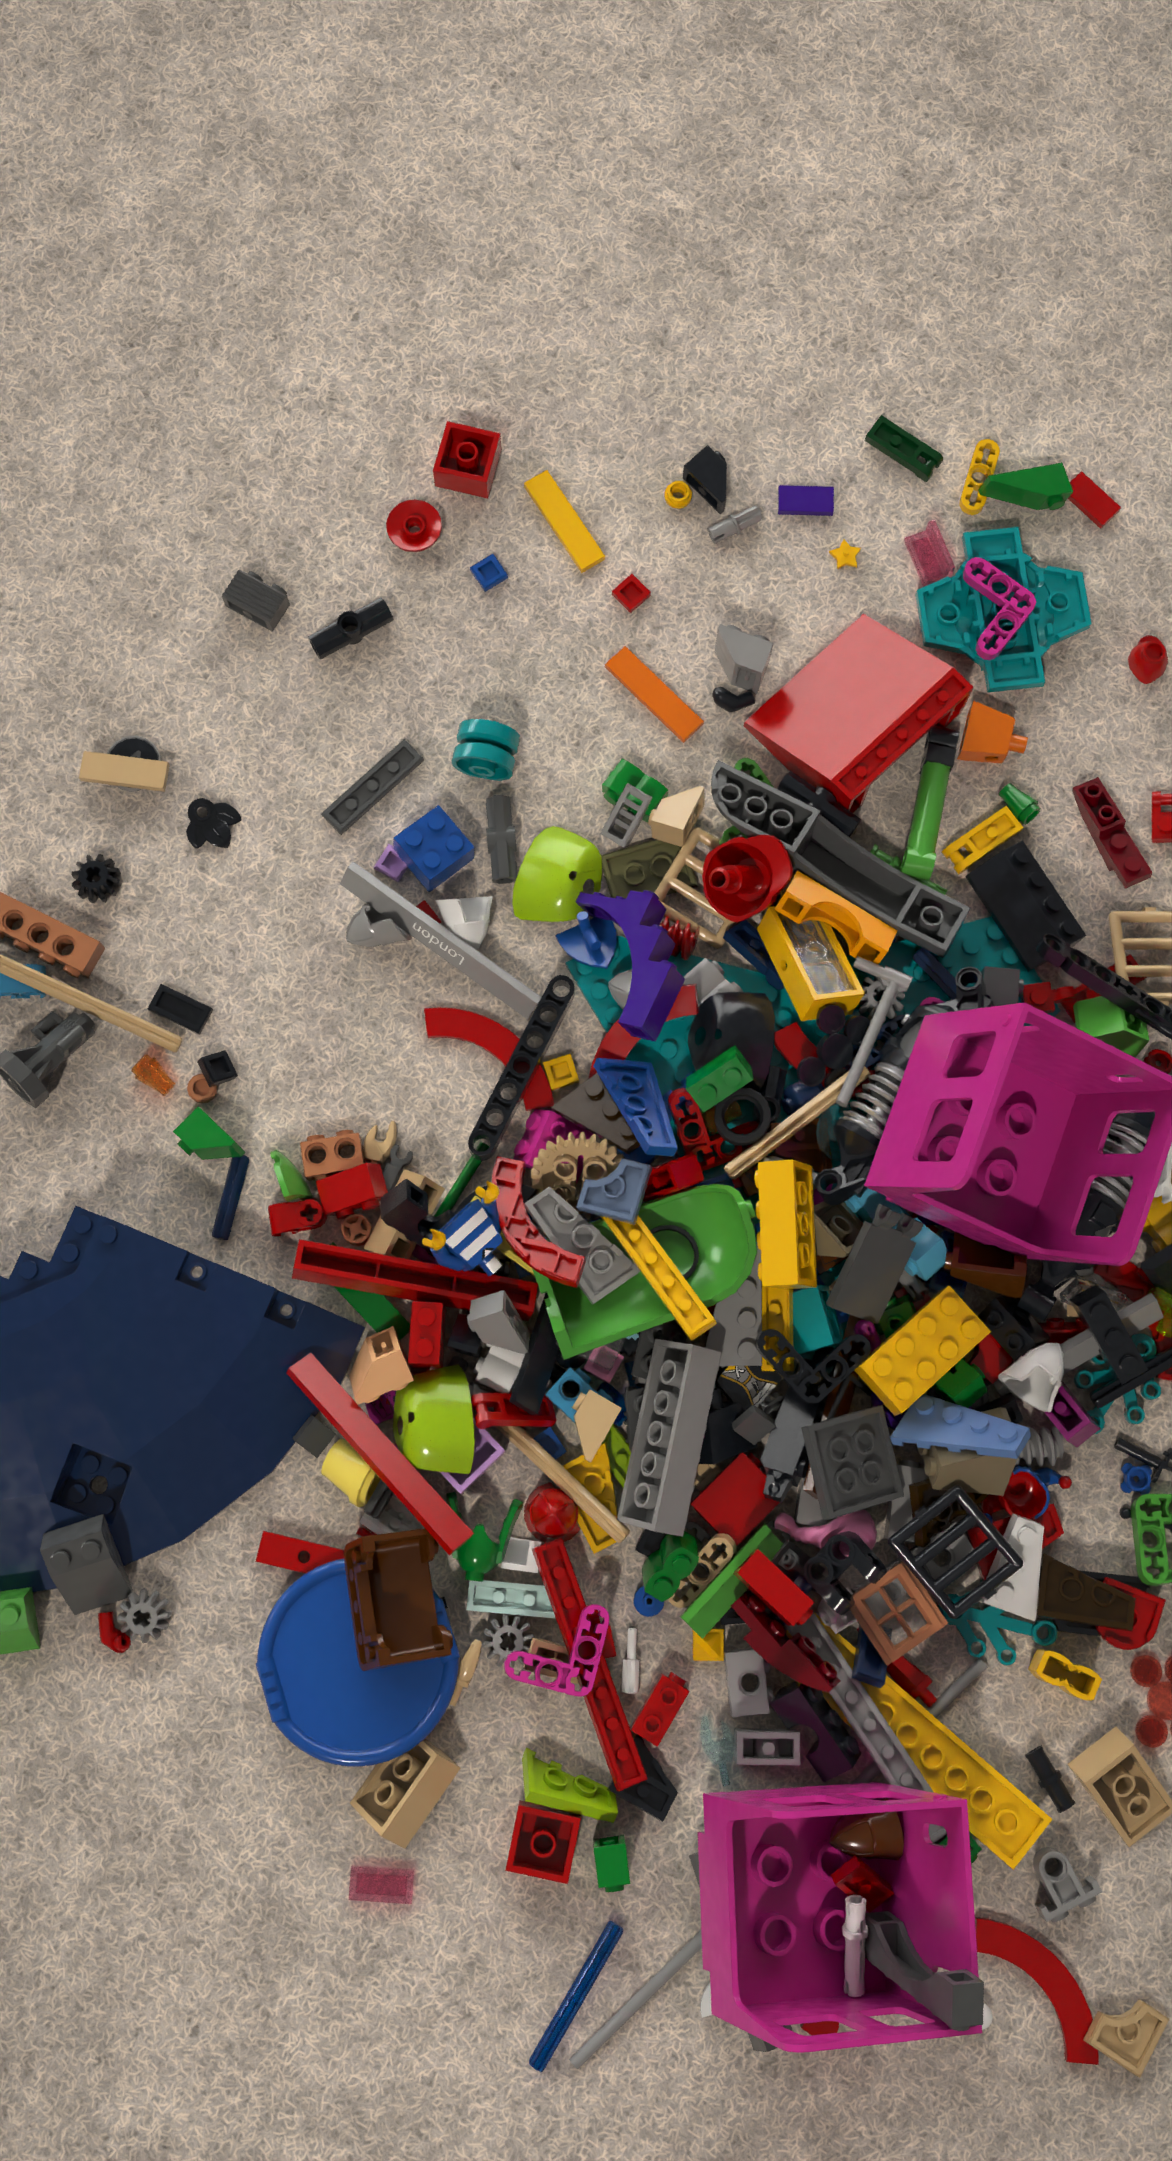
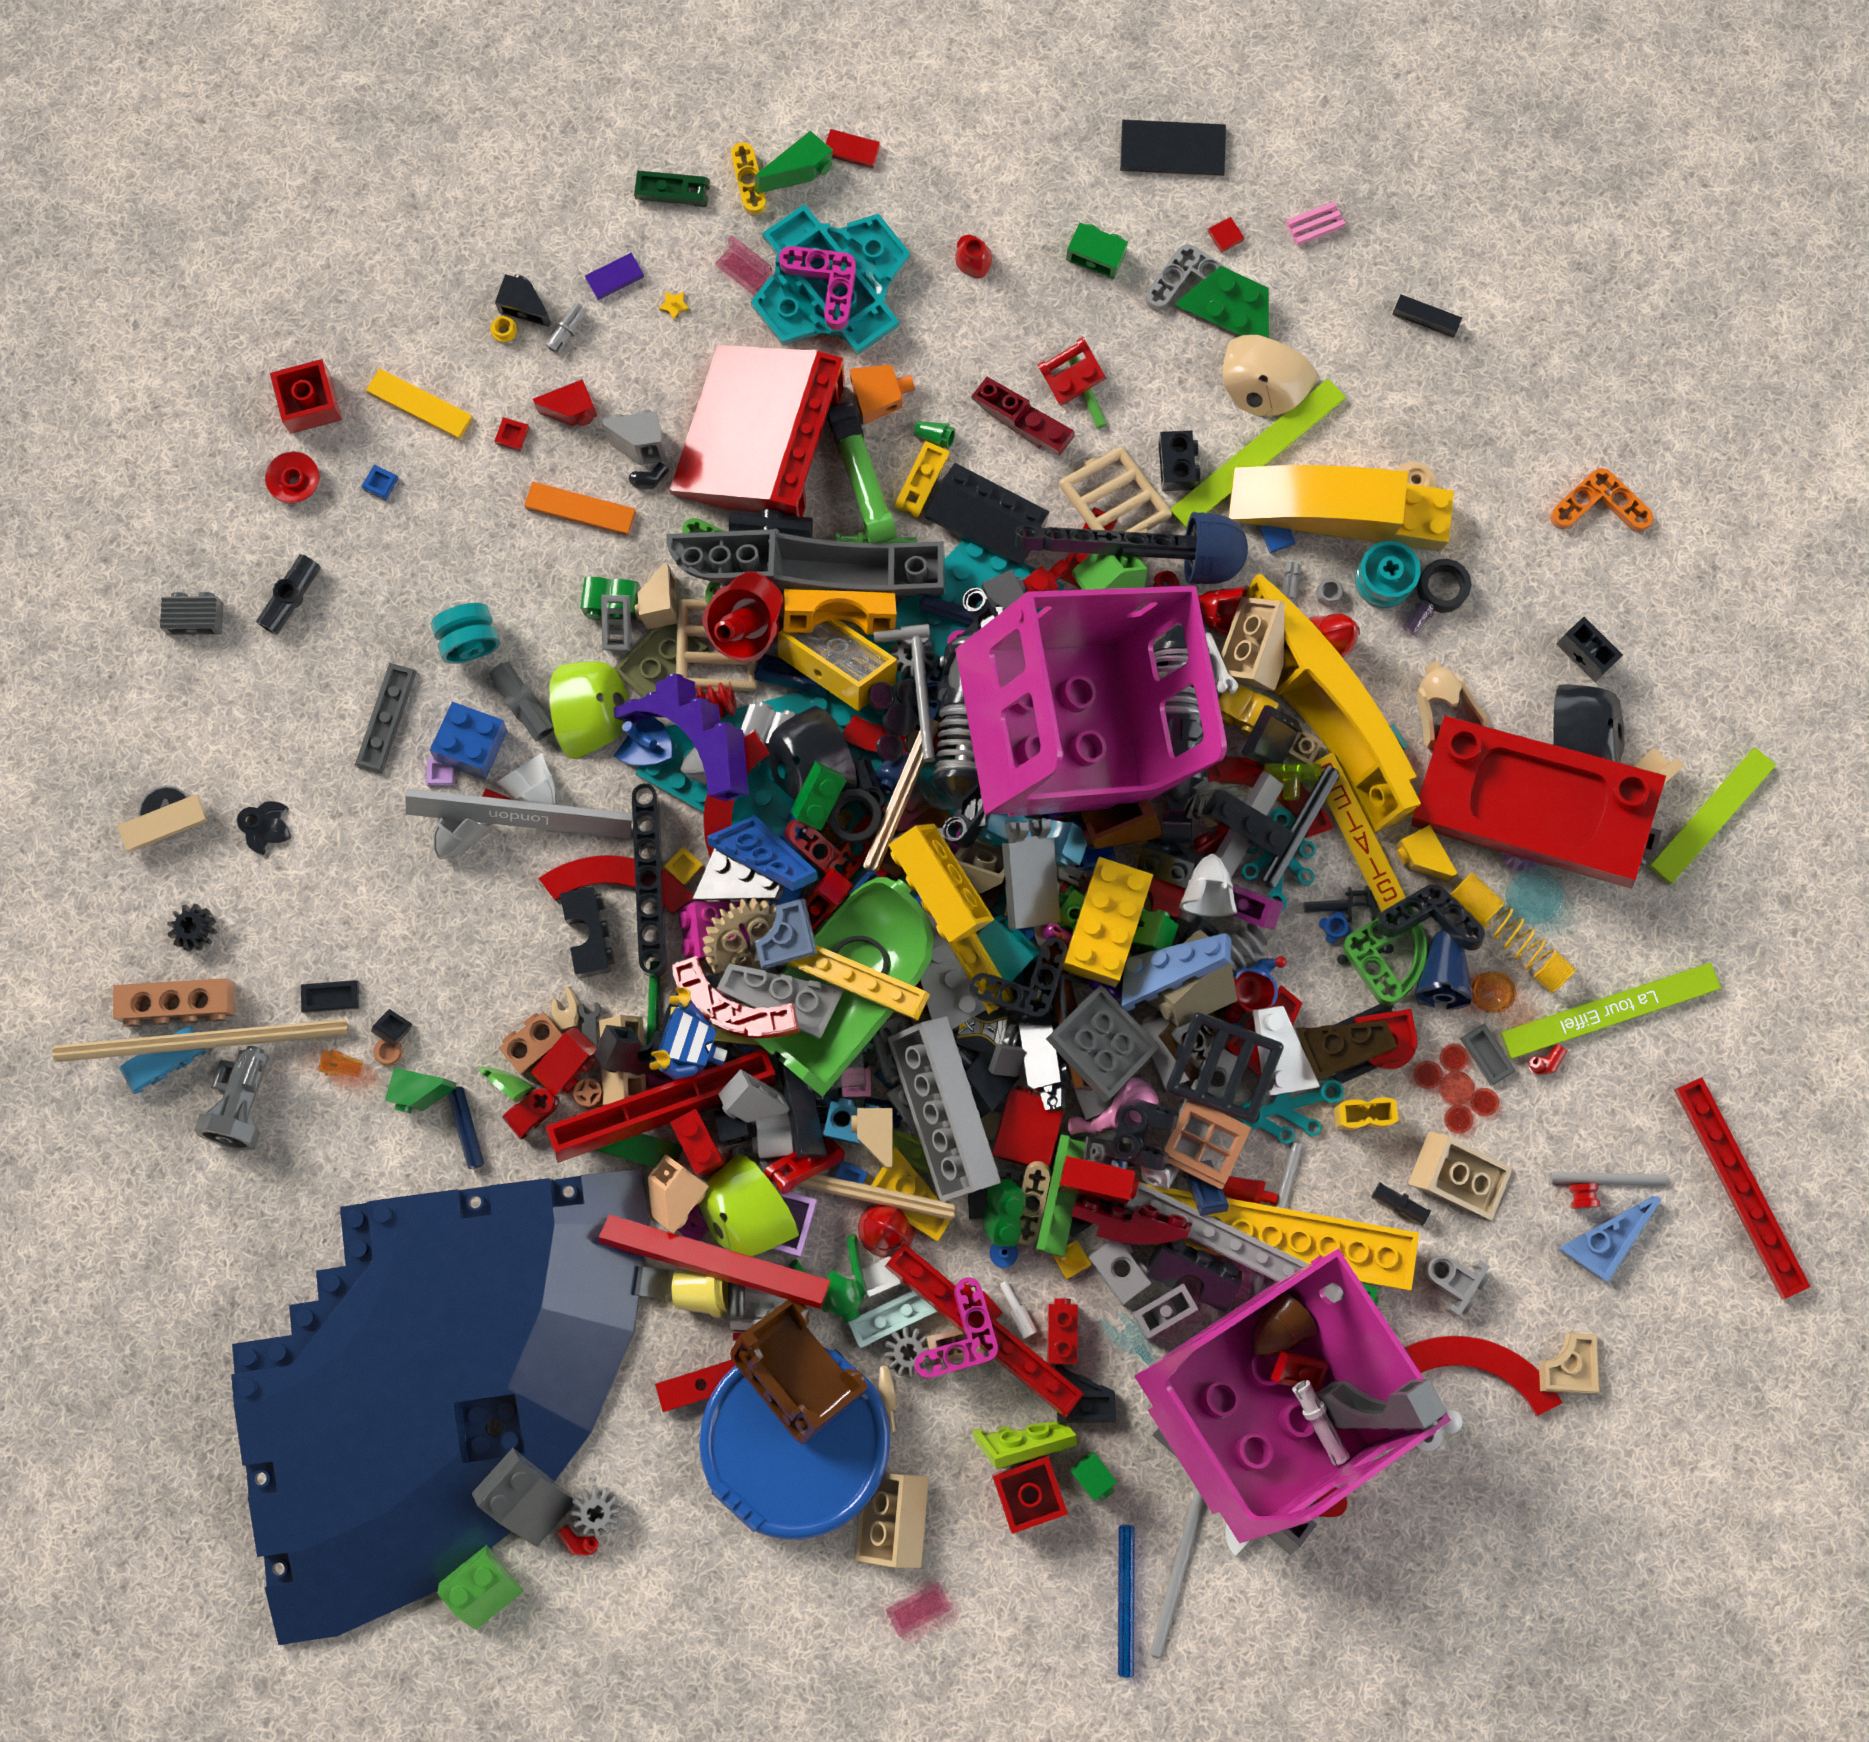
camera: 30 degrees left, 0 degrees up
(433, 1107) = (592, 956): none -> black arch
(696, 593) = (567, 404): none -> red slope

